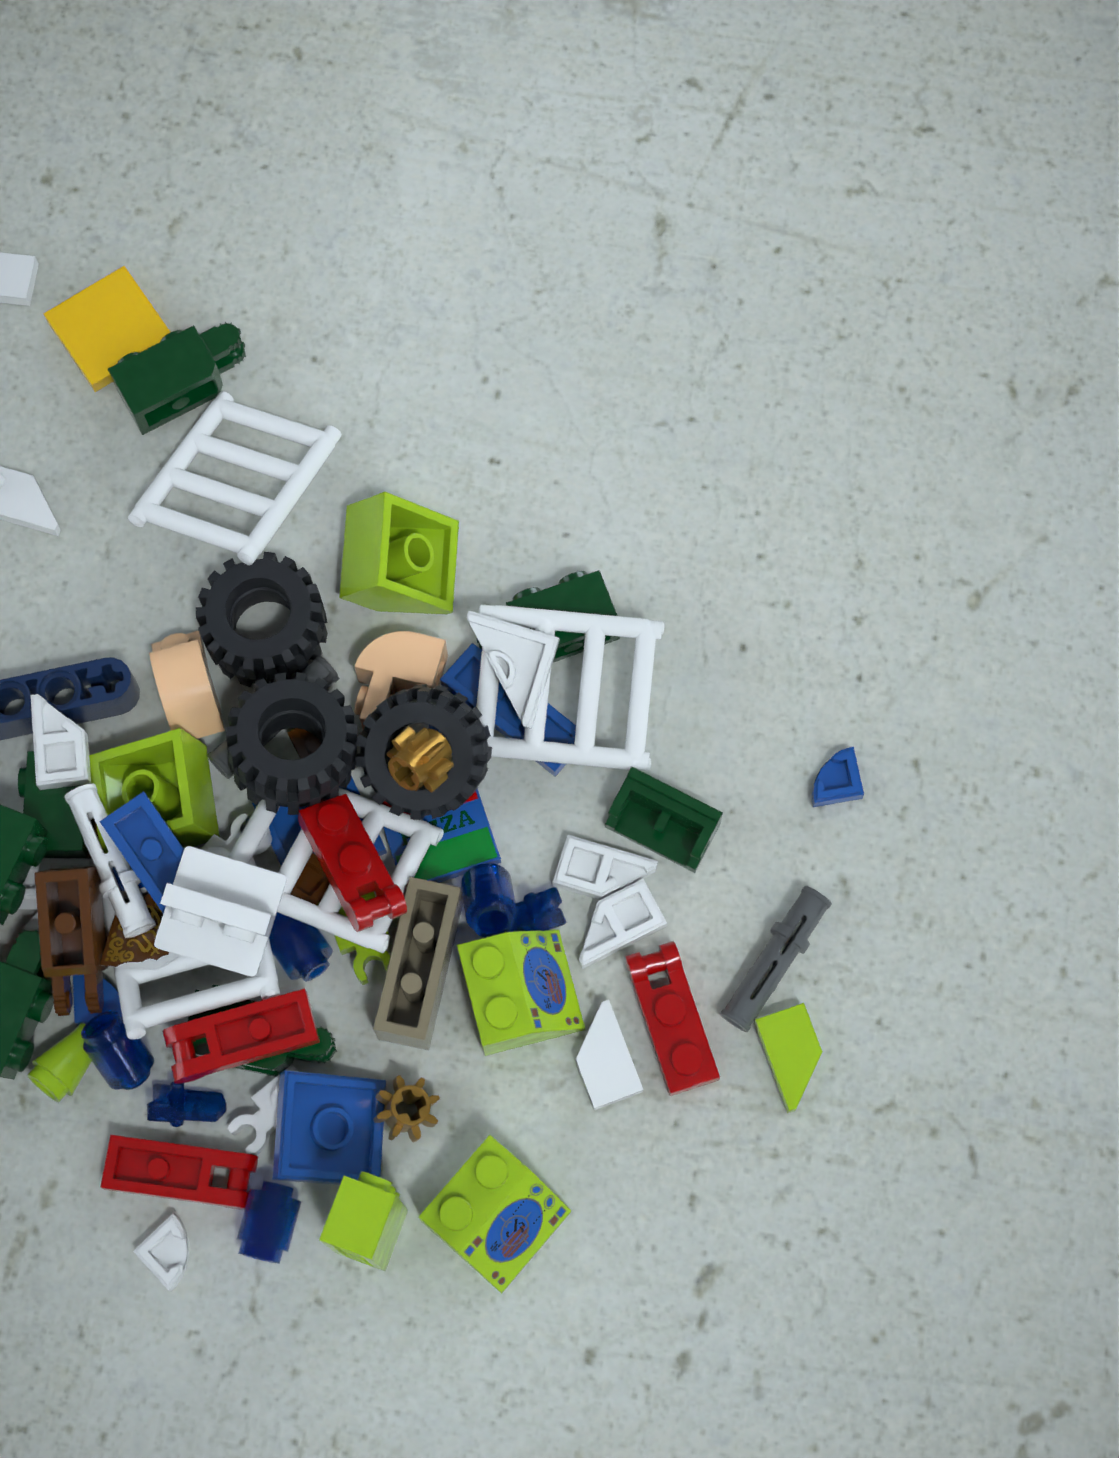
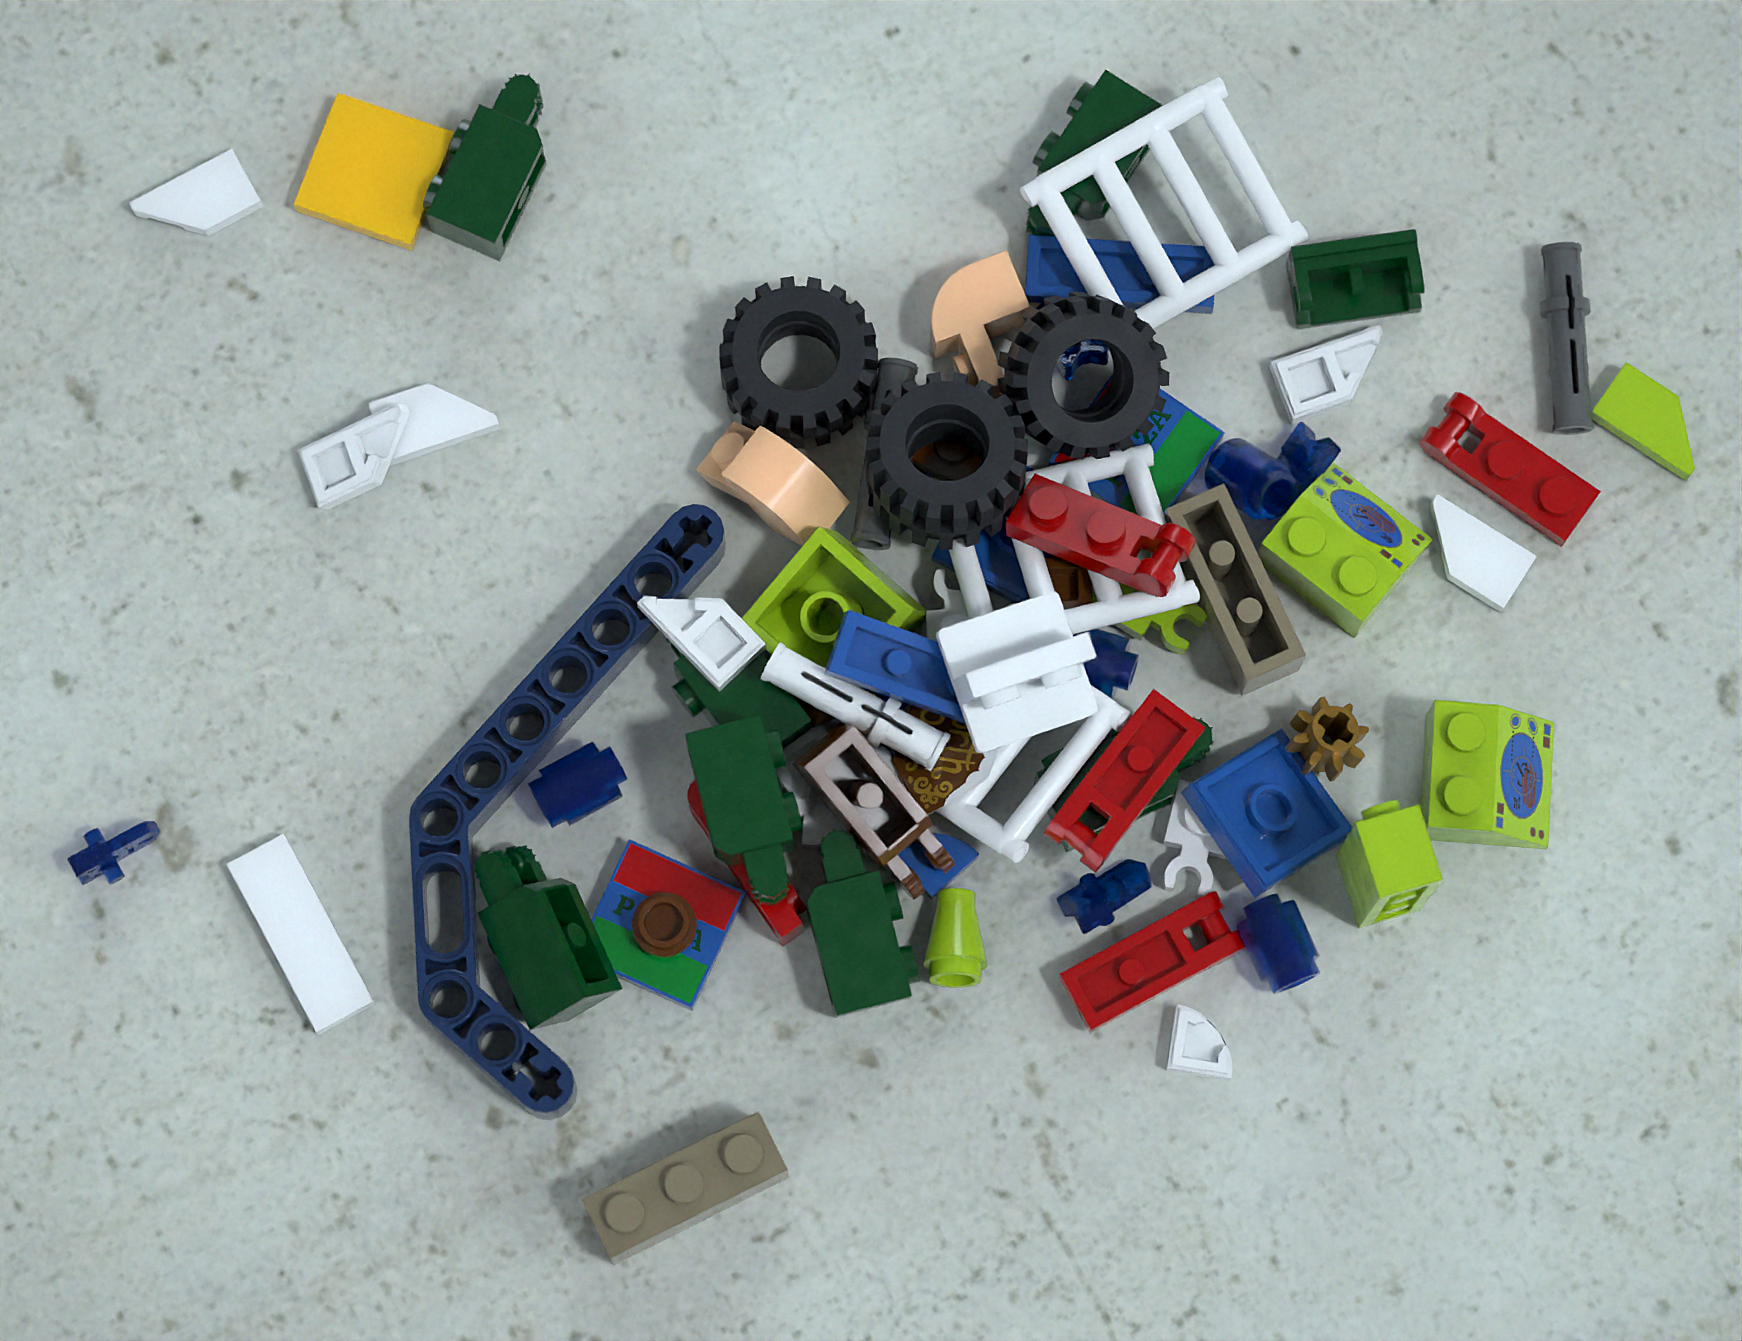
camera: 40 degrees left, 5 degrees up
(119, 1060) = (1002, 889): clear blue brick -> none
(200, 441) = (729, 240): white bar -> none
(398, 556) = (881, 200): lime slope -> none
(420, 759) = (1100, 381): pearl gold gear -> none
(519, 659) = (1105, 216): white tile -> none
(621, 922) = (1387, 411): white tile -> none
(838, 780) = (1491, 118): blue tile -> none

